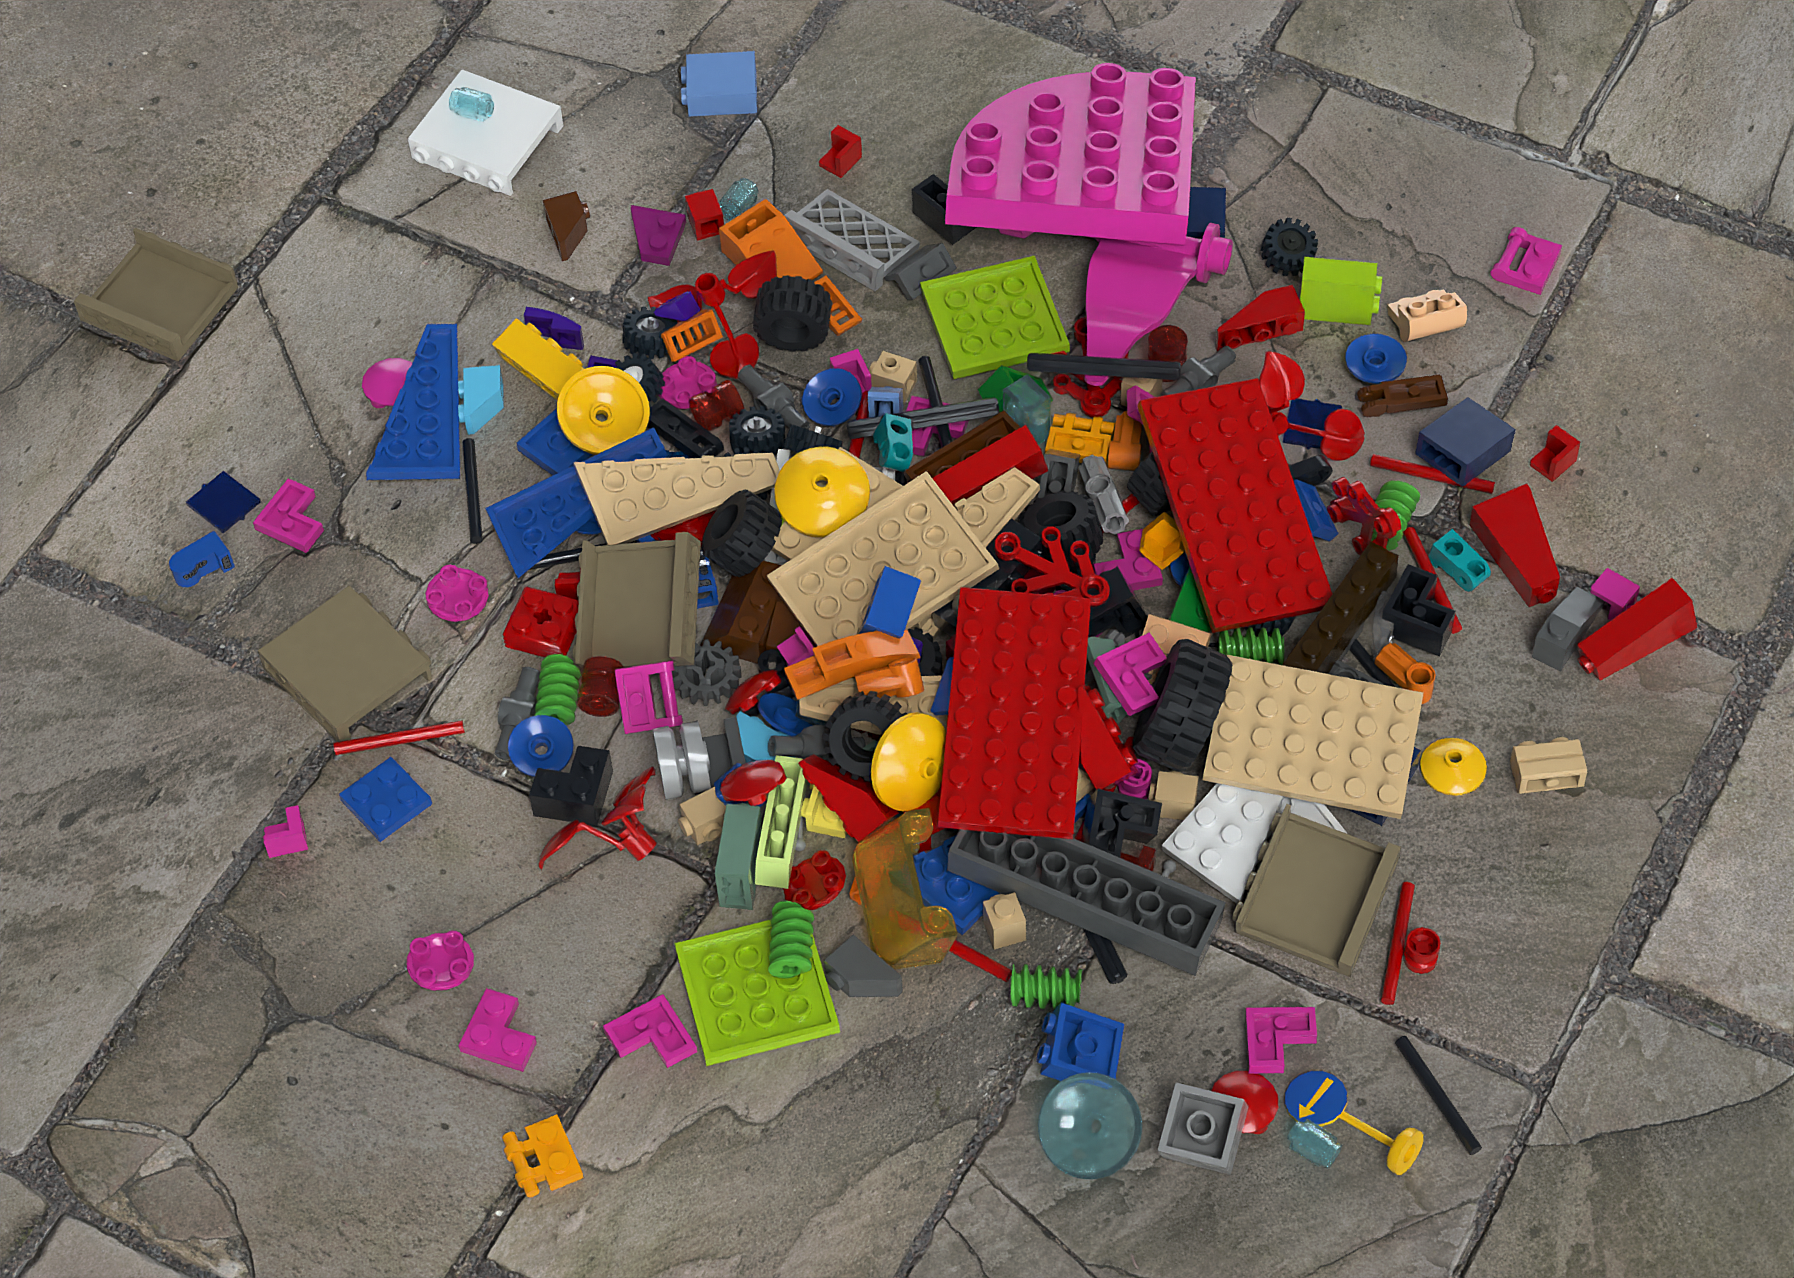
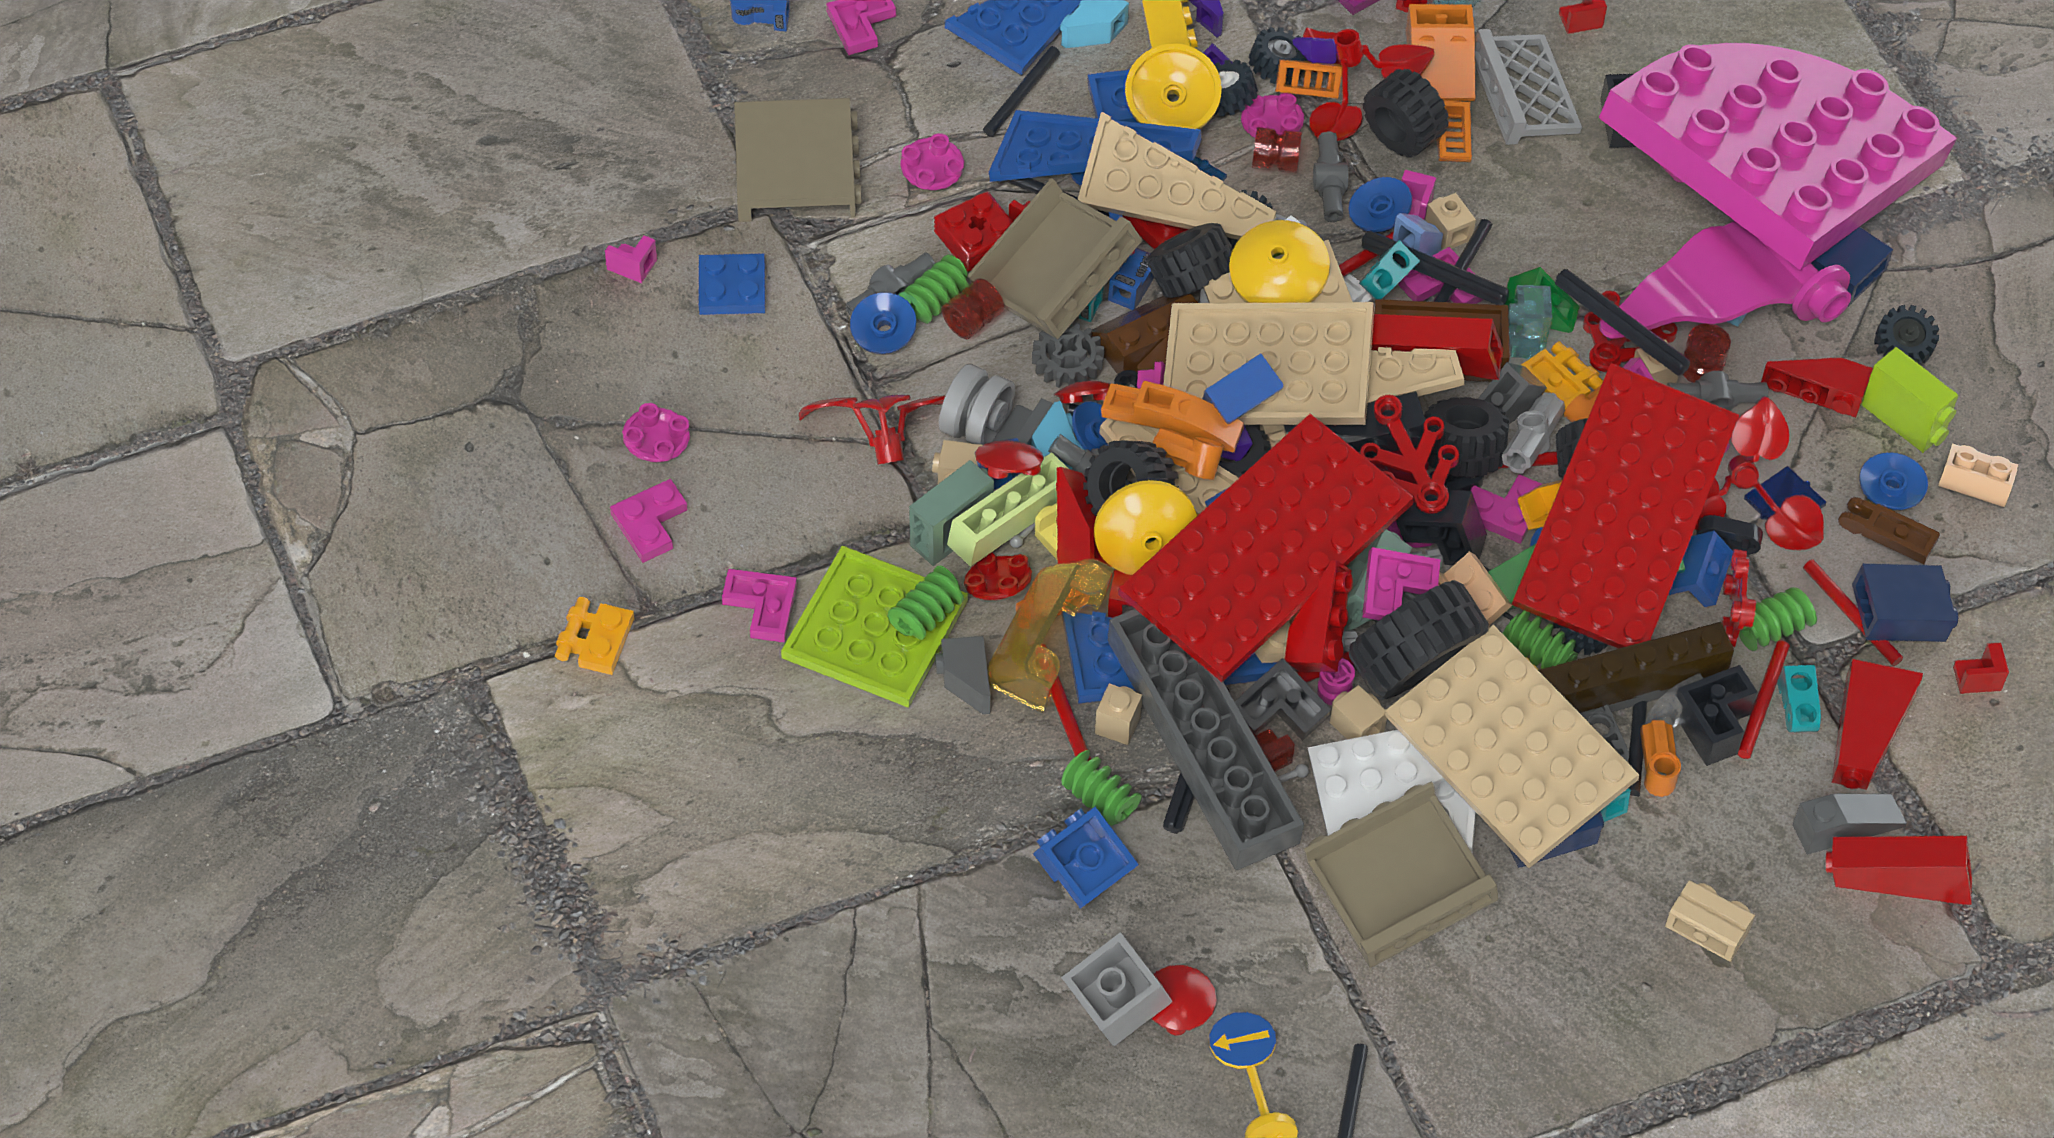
camera: 35 degrees right, 0 degrees up
(399, 737) = (786, 244): red bar -> none
(576, 793) = (873, 376): black brick -> none
(637, 697) = (991, 336): dark pink plate -> none
(683, 431) = (1231, 152): black plate -> none
(757, 430) = (1291, 191): black wheel -> none
(802, 439) = (1326, 226): black wheel -> none
(926, 264) = (1560, 152): dark grey panel -> none
(993, 316) = (1585, 227): lime plate -> none
(1067, 1123) = (1015, 911): clear light blue dish -> none
(1271, 1028) = (1256, 956): dark pink plate -> none
(1314, 1143) = (1203, 1072): clear light blue brick -> none
(1397, 943) = (1435, 969): red bar -> none
(1421, 950) = (1452, 982): red wheel -> none
(1453, 777) = (1628, 876): yellow dish -> none
(1616, 591) = (1916, 816): dark pink panel -> none

